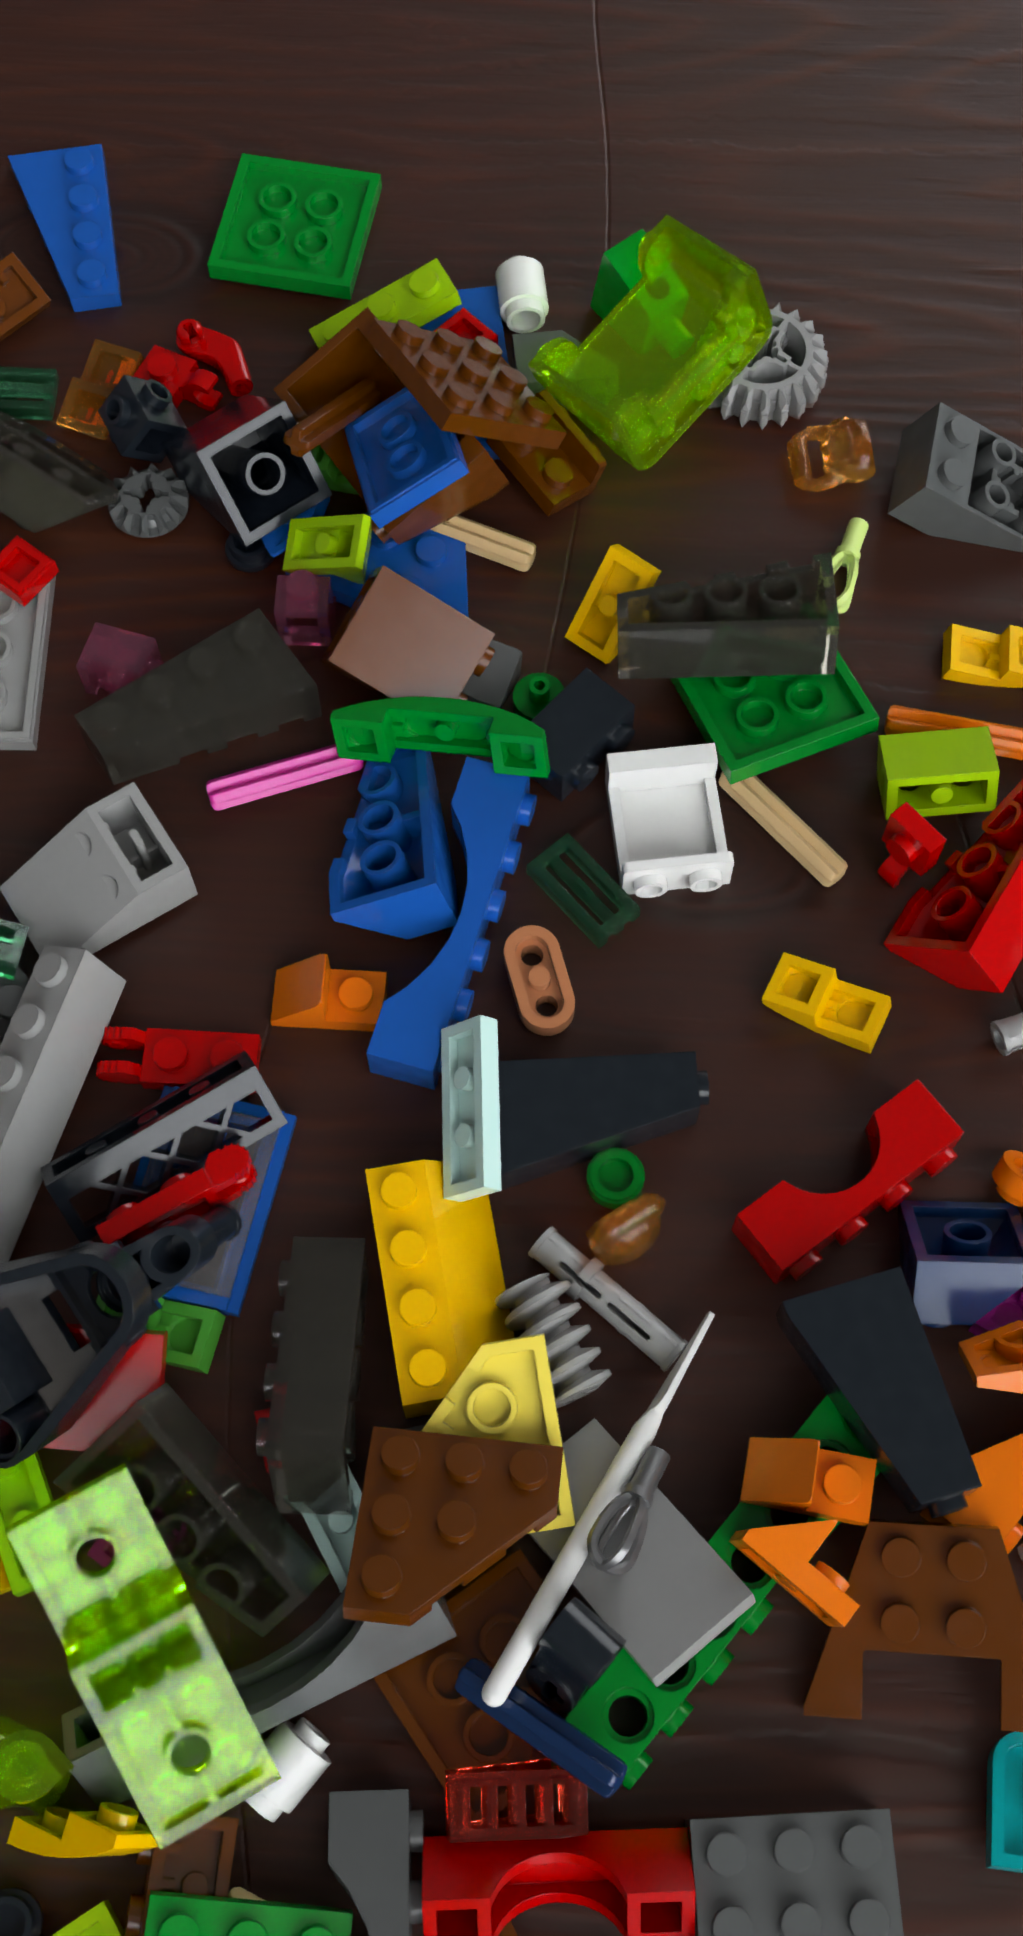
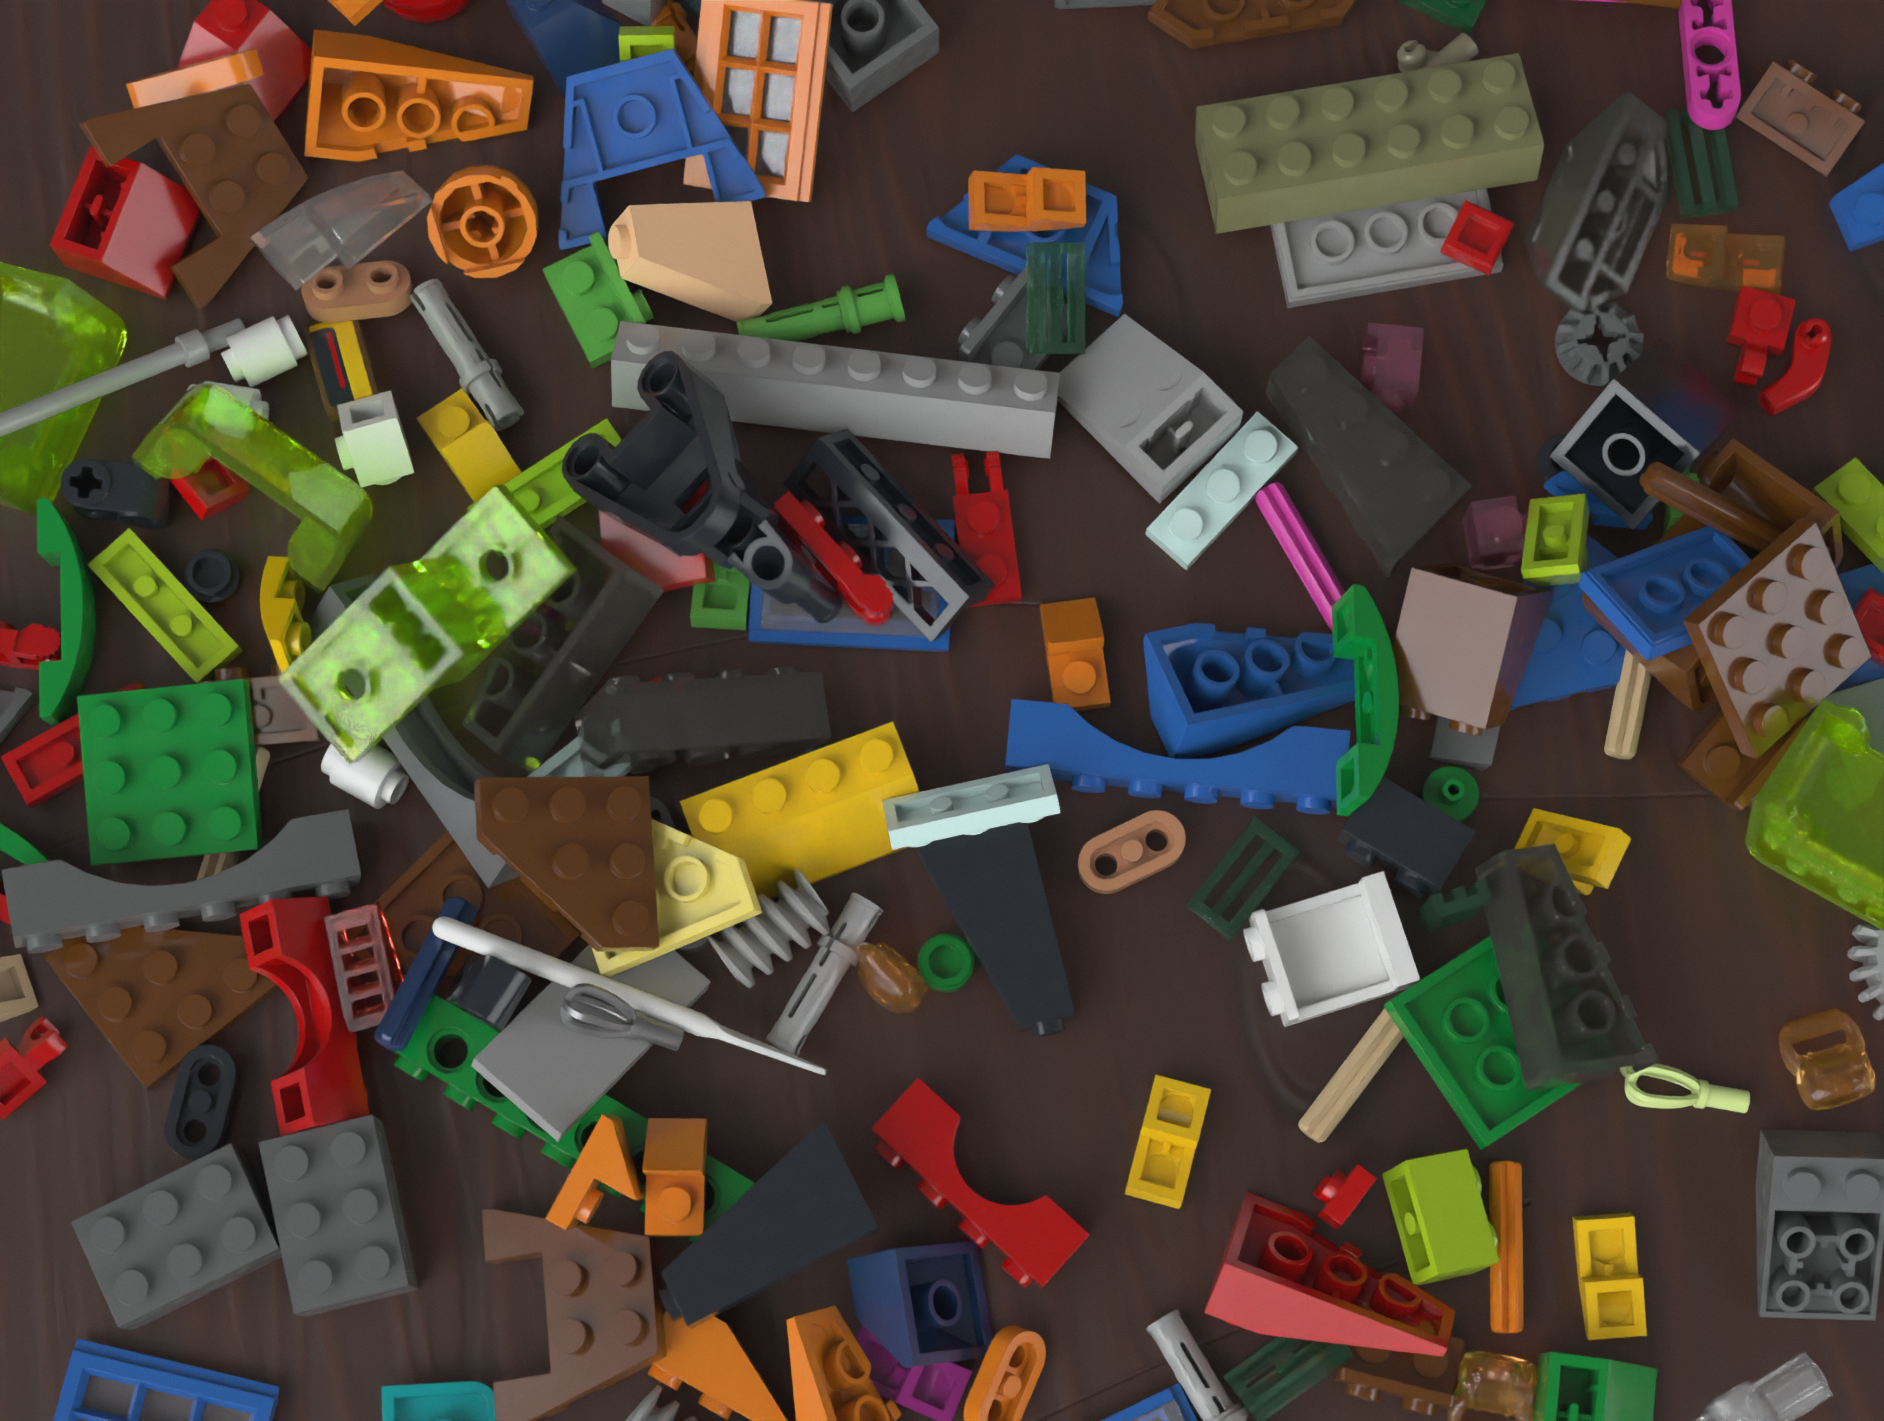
camera: 80 degrees right, 10 degrees up
(141, 418) = (1688, 310): black brick -> none
(203, 838) = (1221, 490): none -> light aqua plate
(652, 699) = (1455, 908): none -> clear green tile

